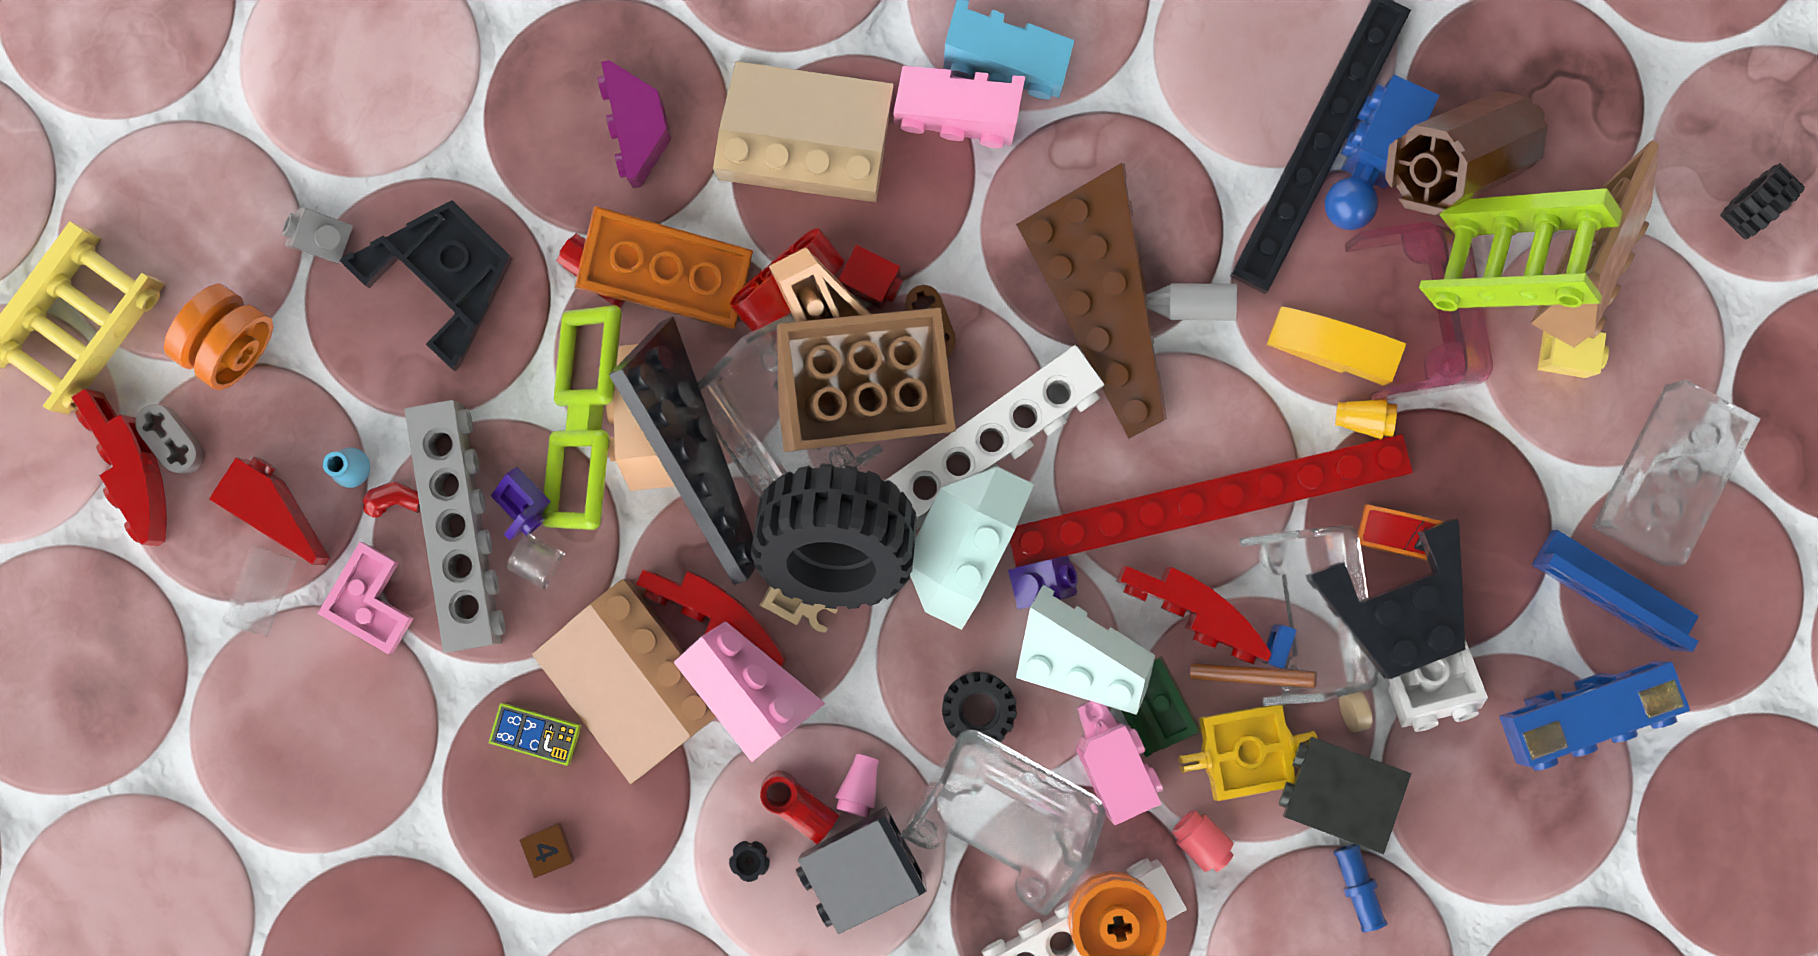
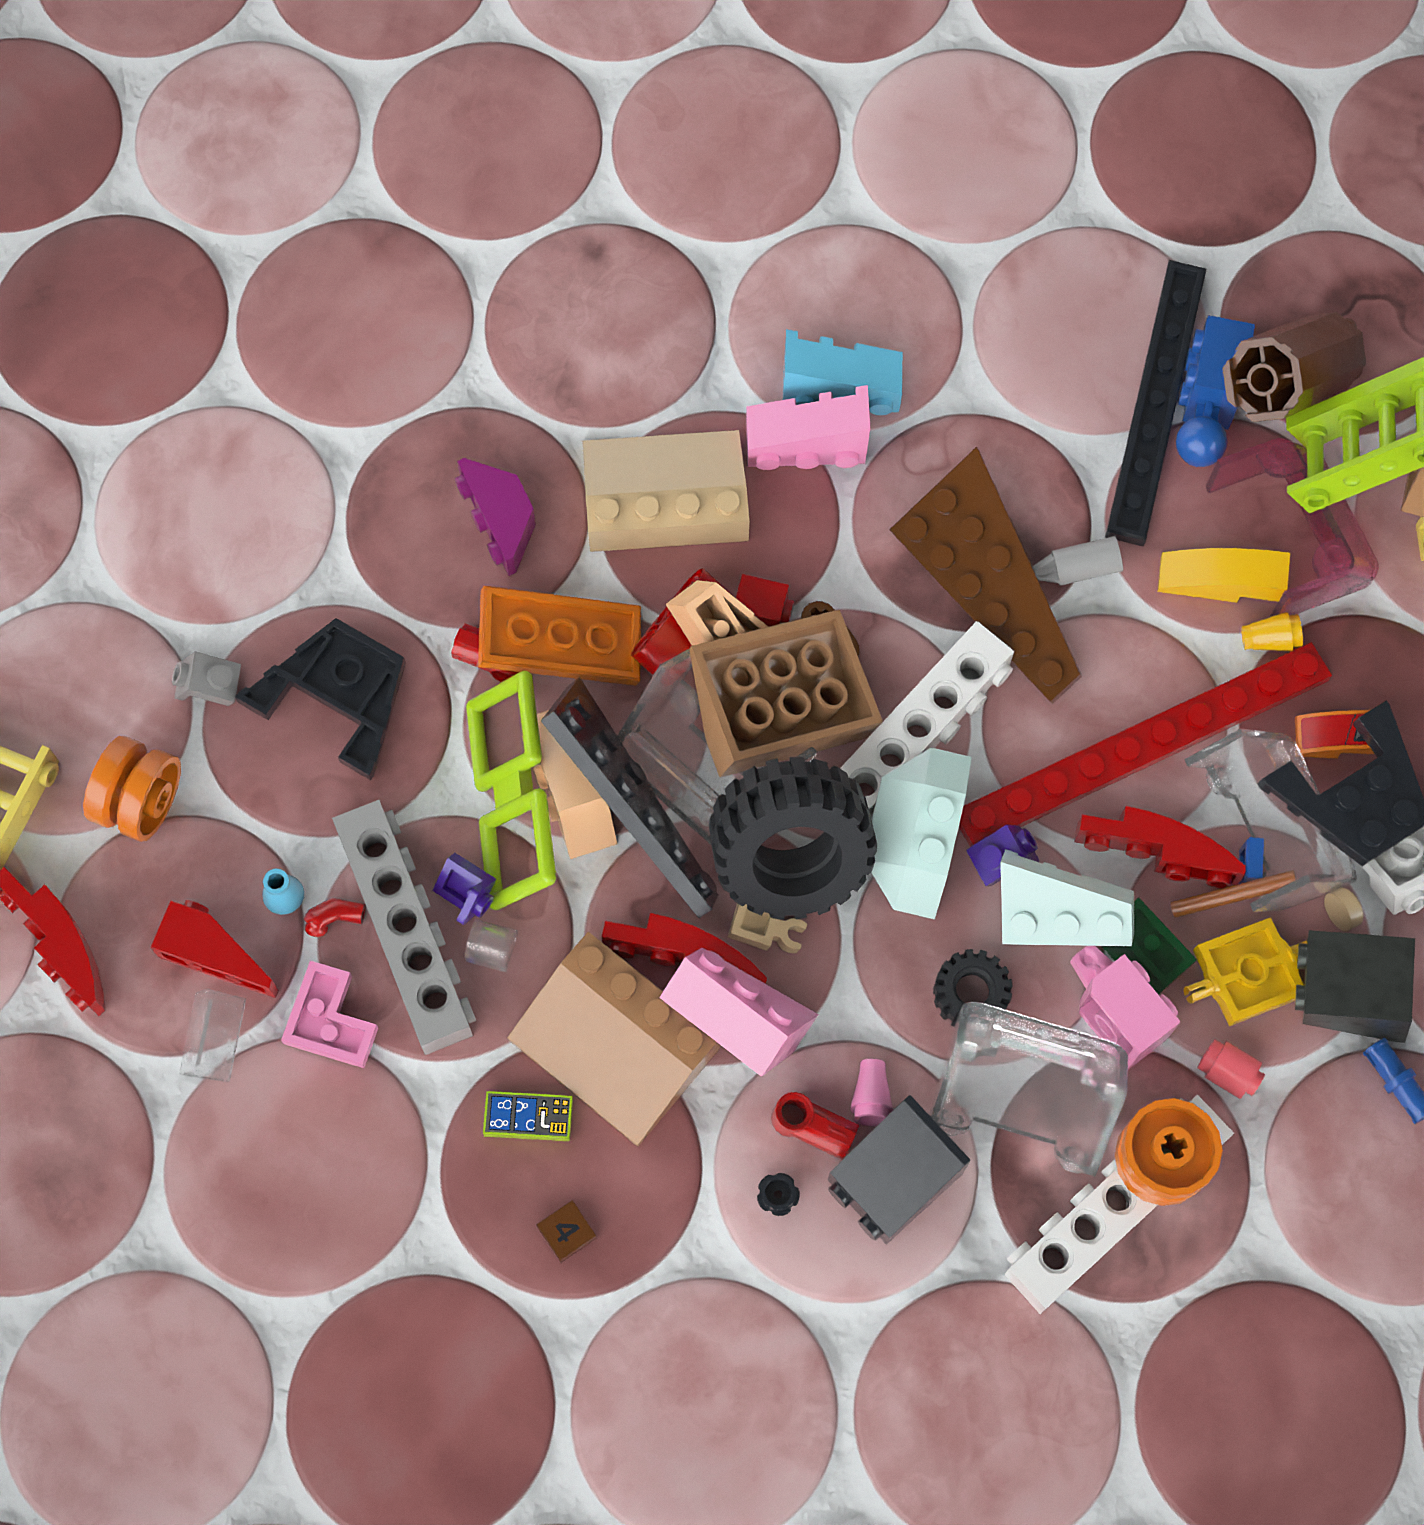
camera: 15 degrees left, 15 degrees down
(176, 433) = (87, 913): light grey beam -> none

